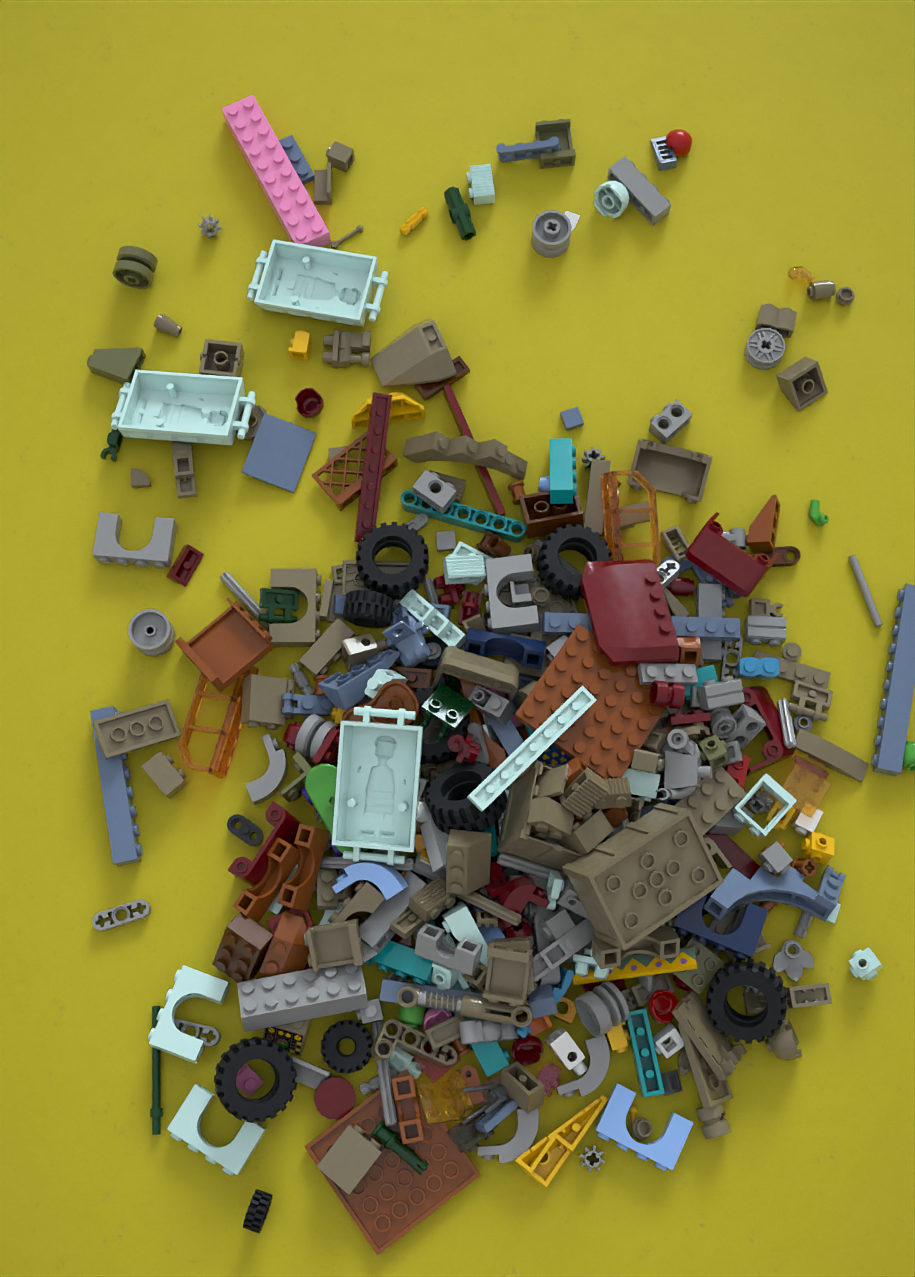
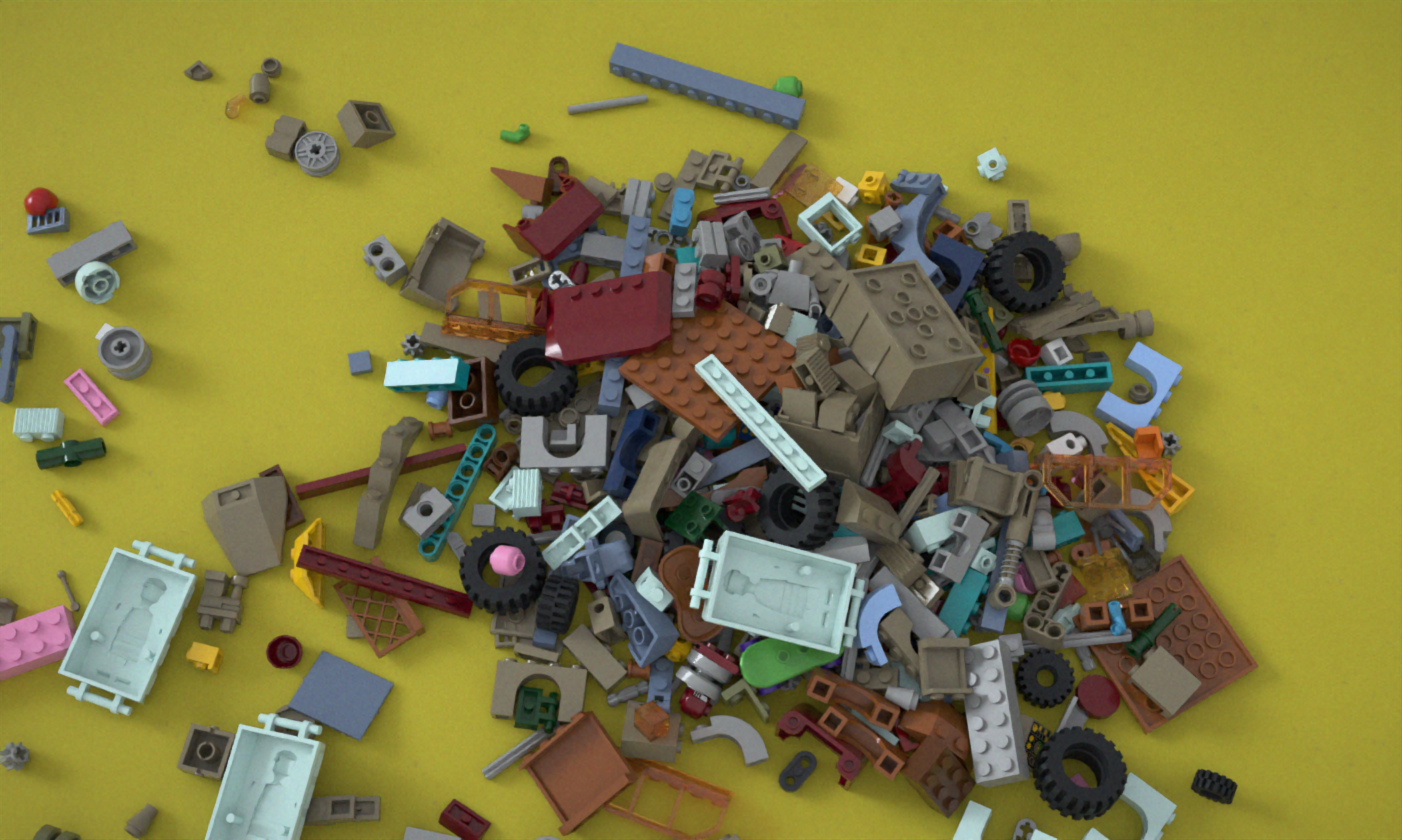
camera: 85 degrees left, 5 degrees down
(269, 697) = (651, 721): none -> clear orange brick
(308, 911) = (903, 697): none -> light grey cone
(393, 557) = (507, 560): none -> bright pink head
(404, 1108) = (1118, 624): none -> dark azure arm
(511, 219) = (92, 397): none -> bright pink tile
(553, 1095) = (1110, 464): none -> clear orange plate
(585, 1136) = (1148, 442): none -> orange panel
(637, 555) = (540, 309): none -> dark red slope
(689, 954) = (978, 310): none -> dark green pin
(745, 847) = (870, 256): none -> yellow brick
(769, 590) = (601, 190): none -> dark tan panel
(778, 927) = (950, 230): none -> dark orange brick
(829, 239) = (198, 72): none -> dark tan tile

